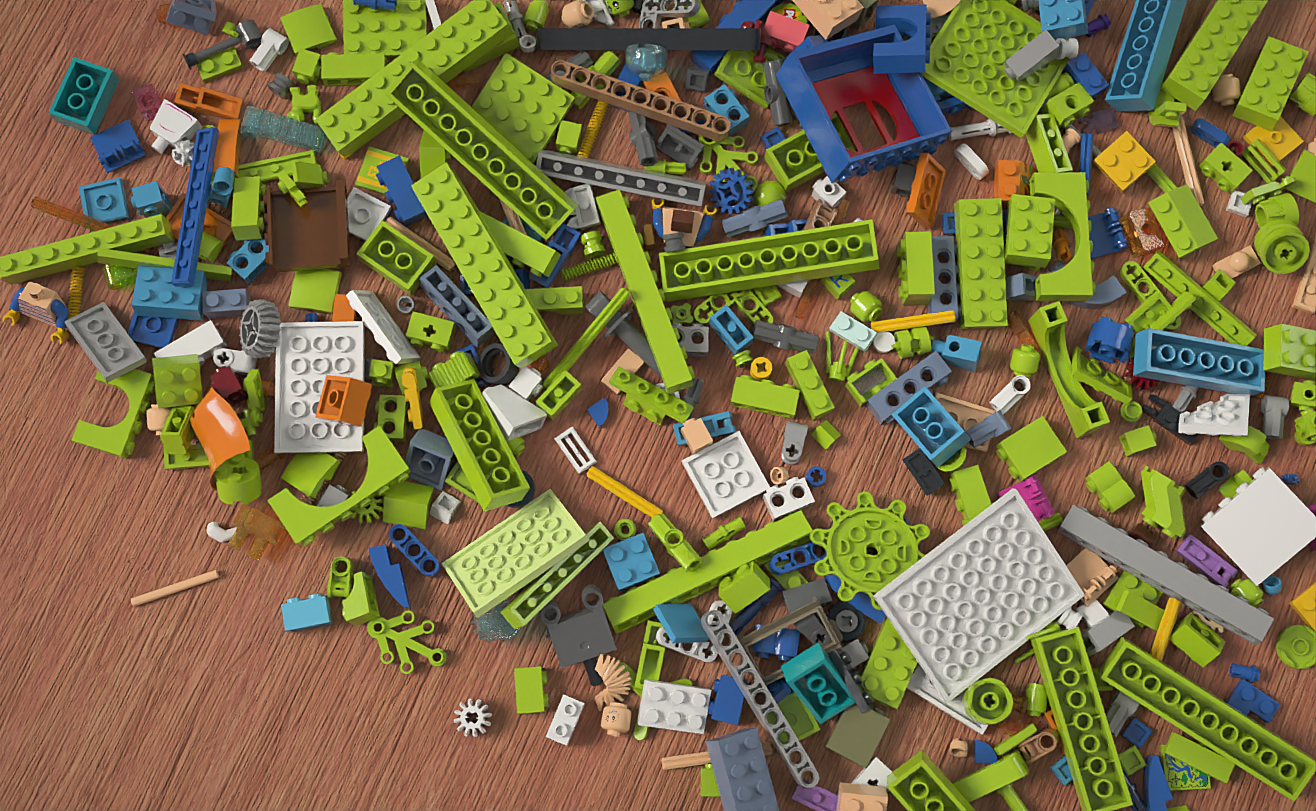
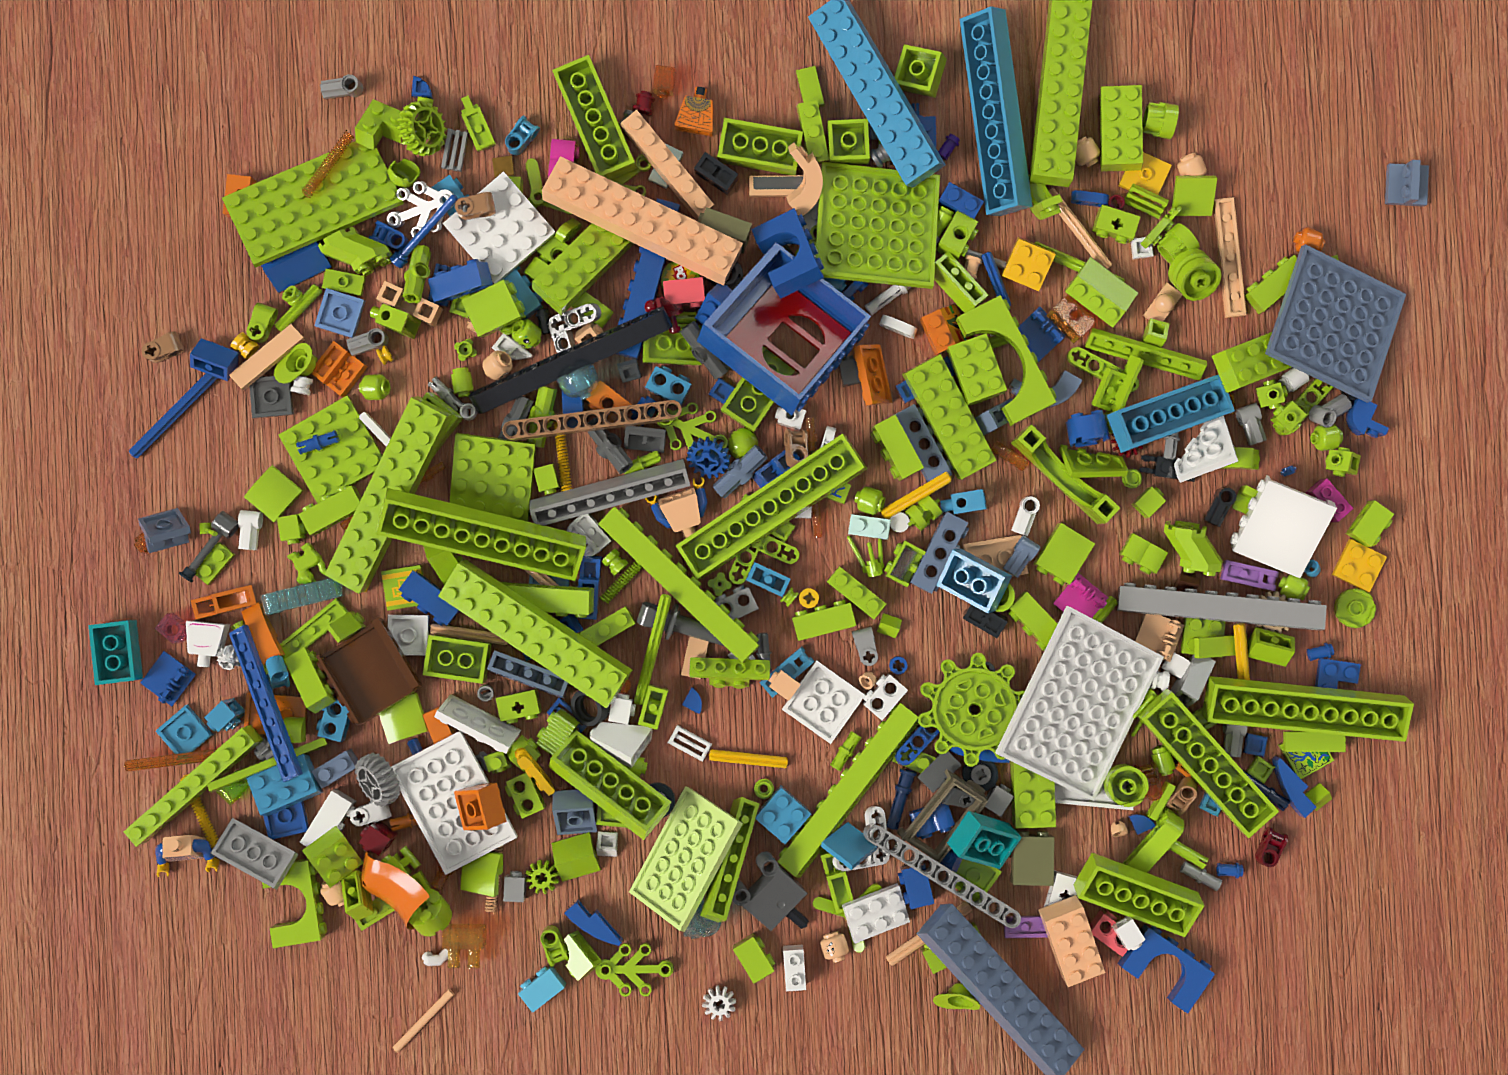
camera: 25 degrees left, 10 degrees up
(256, 397) = (404, 835): lime hinge -> none
(280, 85) = (276, 556): flat silver wheel -> none
(287, 185) = (333, 646): lime plate -> none
(308, 521) = (501, 918): lime arch -> none
(405, 546) = (612, 891): blue beam -> none
(614, 679) = (817, 916): light nougat hair -> none
(648, 237) = (658, 532): pearl gold tile -> none
(674, 242) = (683, 530): dark grey wheel -> none
(682, 221) = (681, 508): copper slope -> none
(682, 550) = (820, 787): lime piece -> none
(744, 586) = (885, 790): lime brick -> none
(784, 336) = (815, 561): dark grey piece -> none
(852, 680) = (1009, 825): black plate -> none
(1025, 360) = (1024, 481): lime head -> none
(1032, 57) = (907, 214): light grey slope -> none
(1061, 245) = (1009, 365): orange axle -> none
(1067, 48) = (932, 186): white wheel -> none
(1101, 121) = (991, 233): plate -> none

